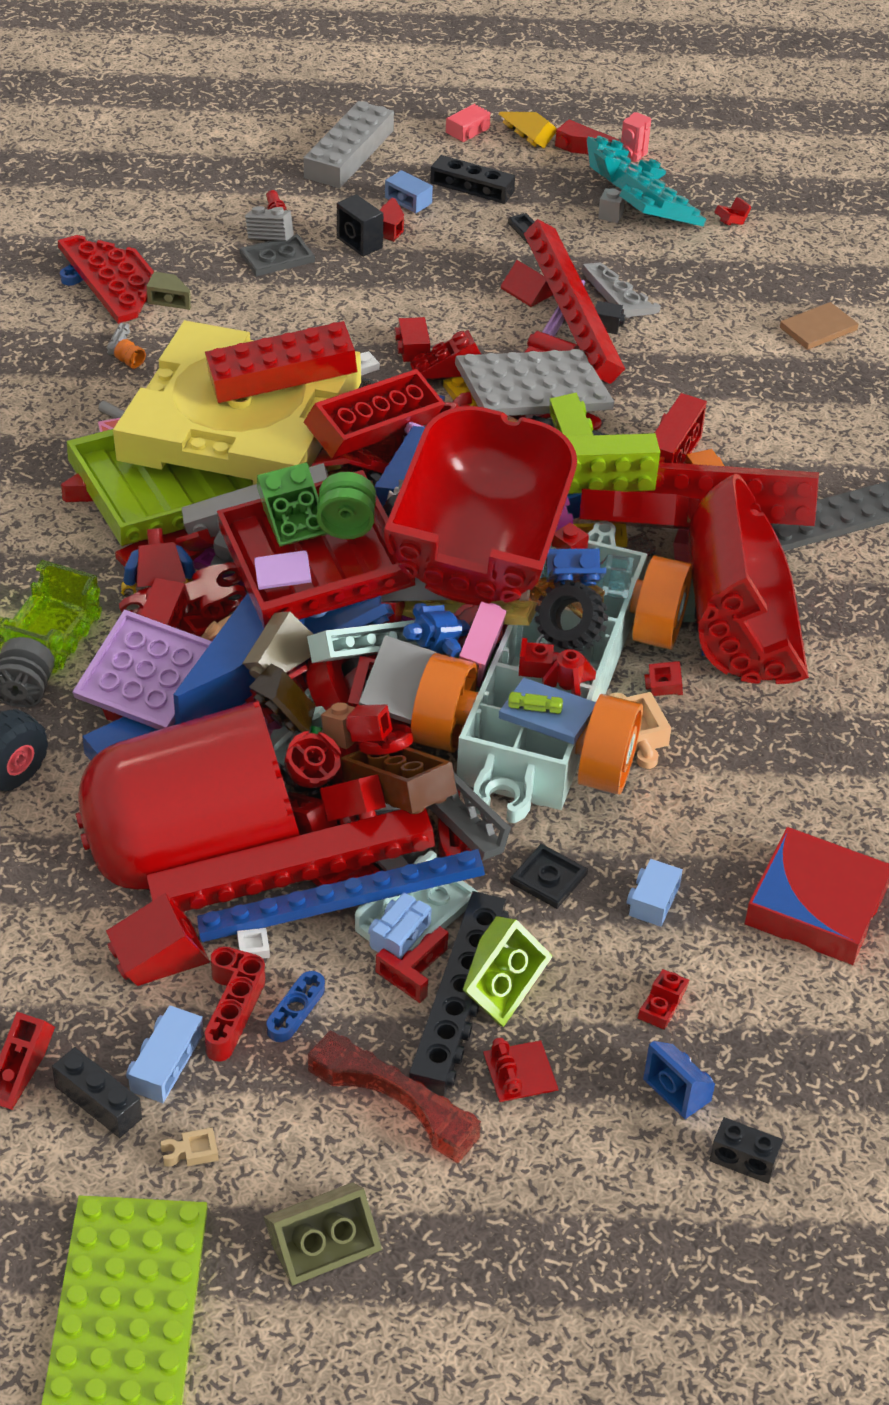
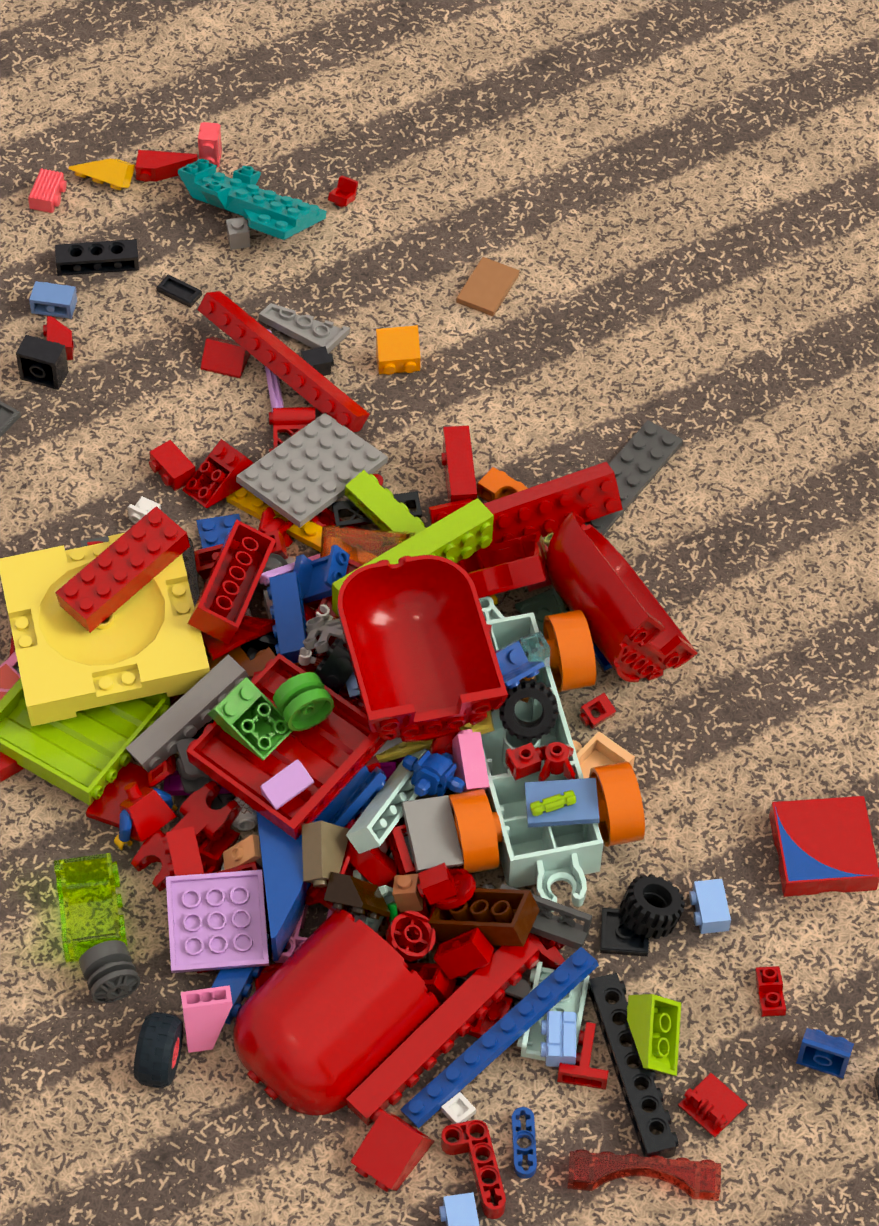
camera: 30 degrees left, 10 degrees up
(69, 742) = (205, 1015): none -> bright pink slope
(588, 859) = (652, 906): none -> black tyre
(690, 332) = (398, 350): none -> light orange slope

